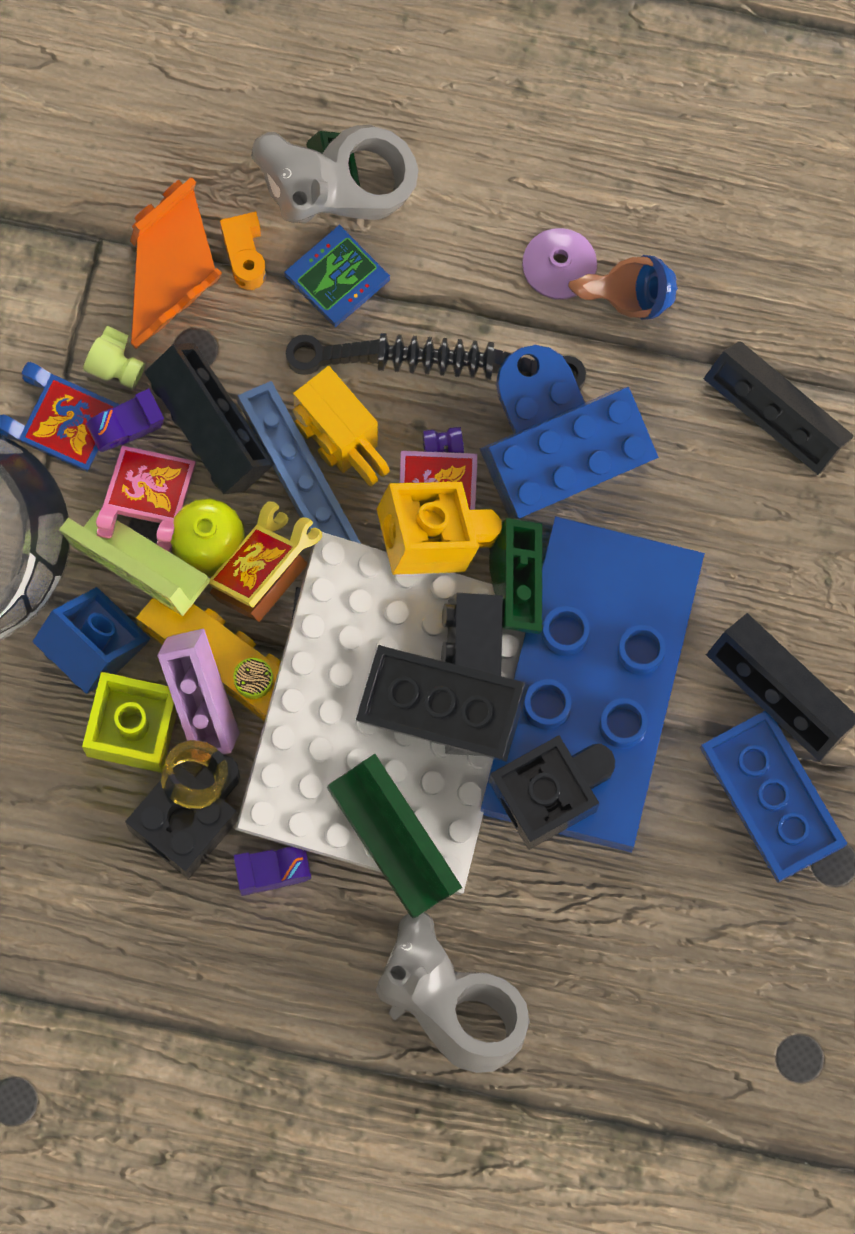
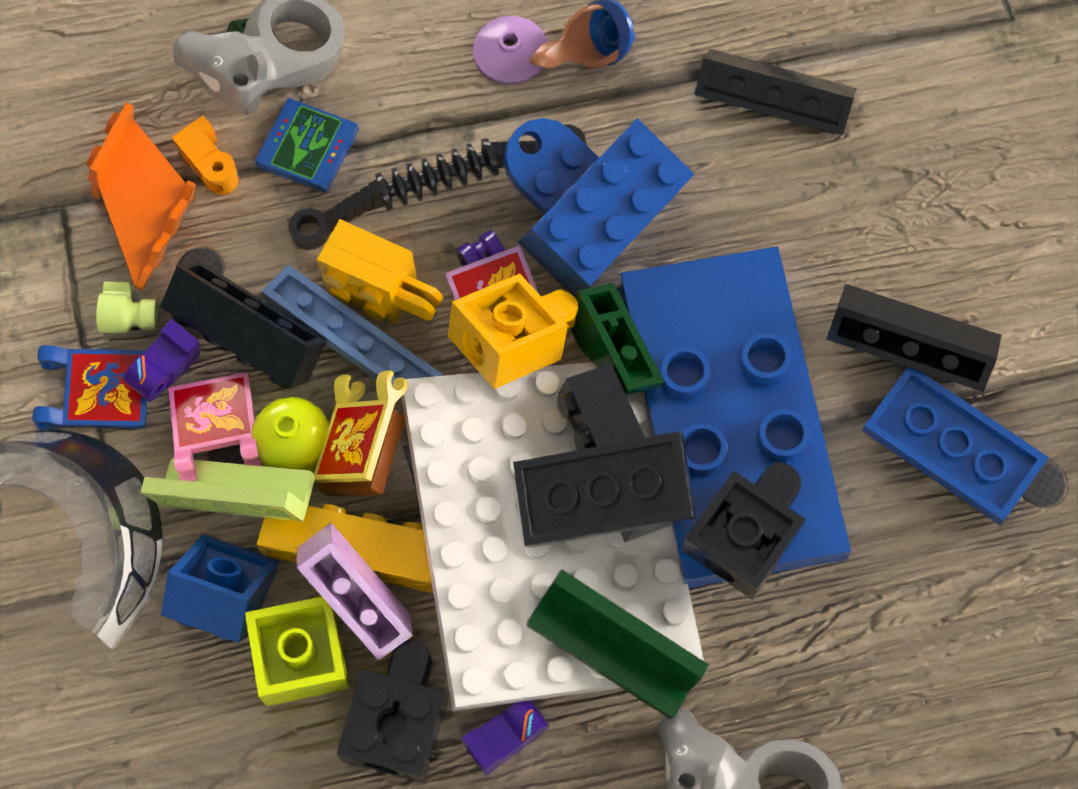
camera: 20 degrees left, 5 degrees down
(198, 752) = (386, 648): clear yellow piece -> none
(253, 678) = (401, 551): tile -> none

